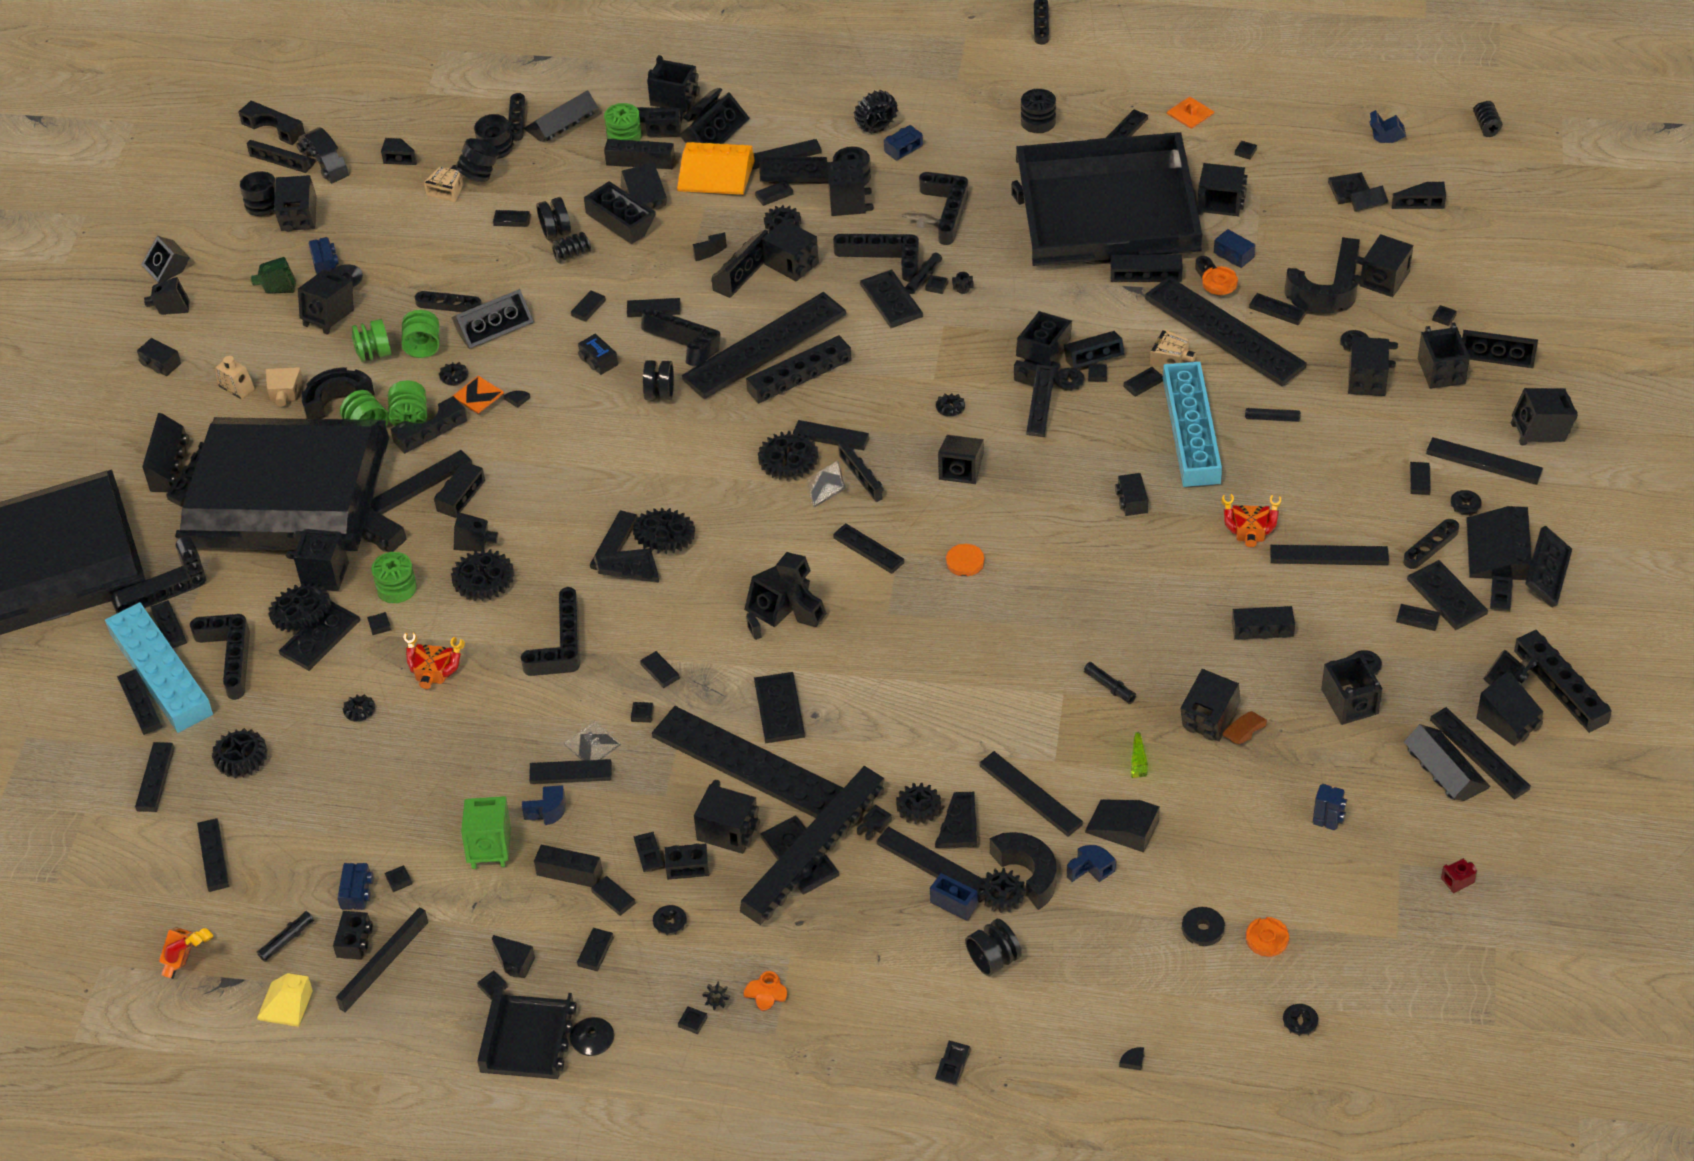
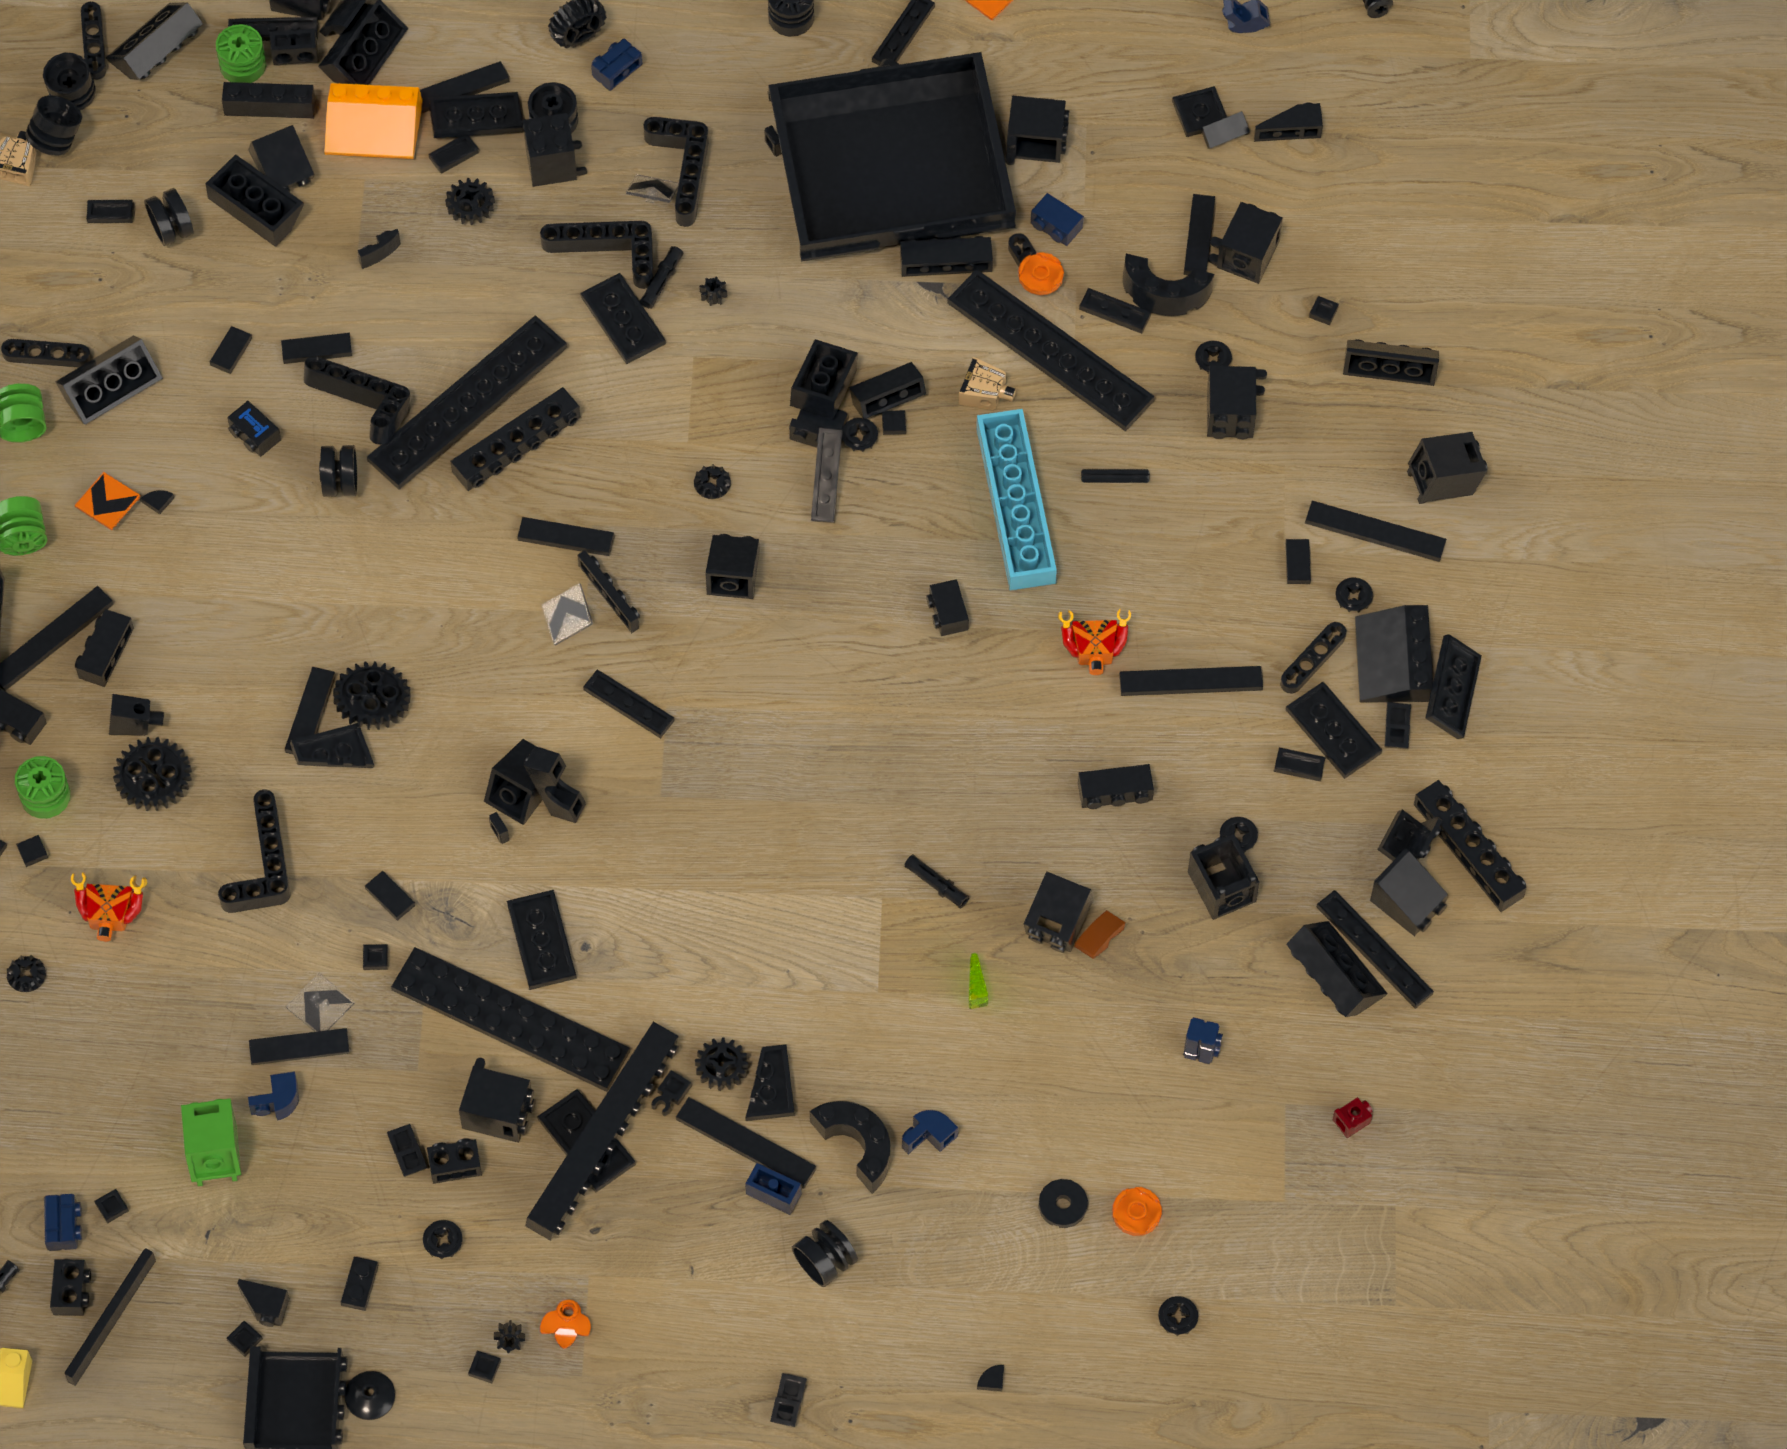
camera: 10 degrees left, 15 degrees up
(412, 435) = (29, 569): black arch -> none
(460, 373) = (78, 470): black gear -> none
(568, 866) = (314, 1178): black brick -> none
(570, 245) = (195, 257): black piece -> none
(613, 895) = (371, 1211): black tile -> none
(739, 266) = (424, 278): black slope -> none
(776, 451) = (494, 569): black gear -> none
(790, 250) = (486, 254): black container -> none
(936, 284) = (679, 292): black tile -> none
(965, 559) = (749, 714): orange tile -> none
(992, 887) = (818, 1175): black gear -> none
(1031, 794) = (852, 1040): black tile -> none
(1125, 822) = (964, 1072): black slope -> none
(1143, 381) = (952, 432): black tile -> none
(1245, 150) = (1064, 54): black tile -> none
(1443, 357) = (1323, 383): black container -> none

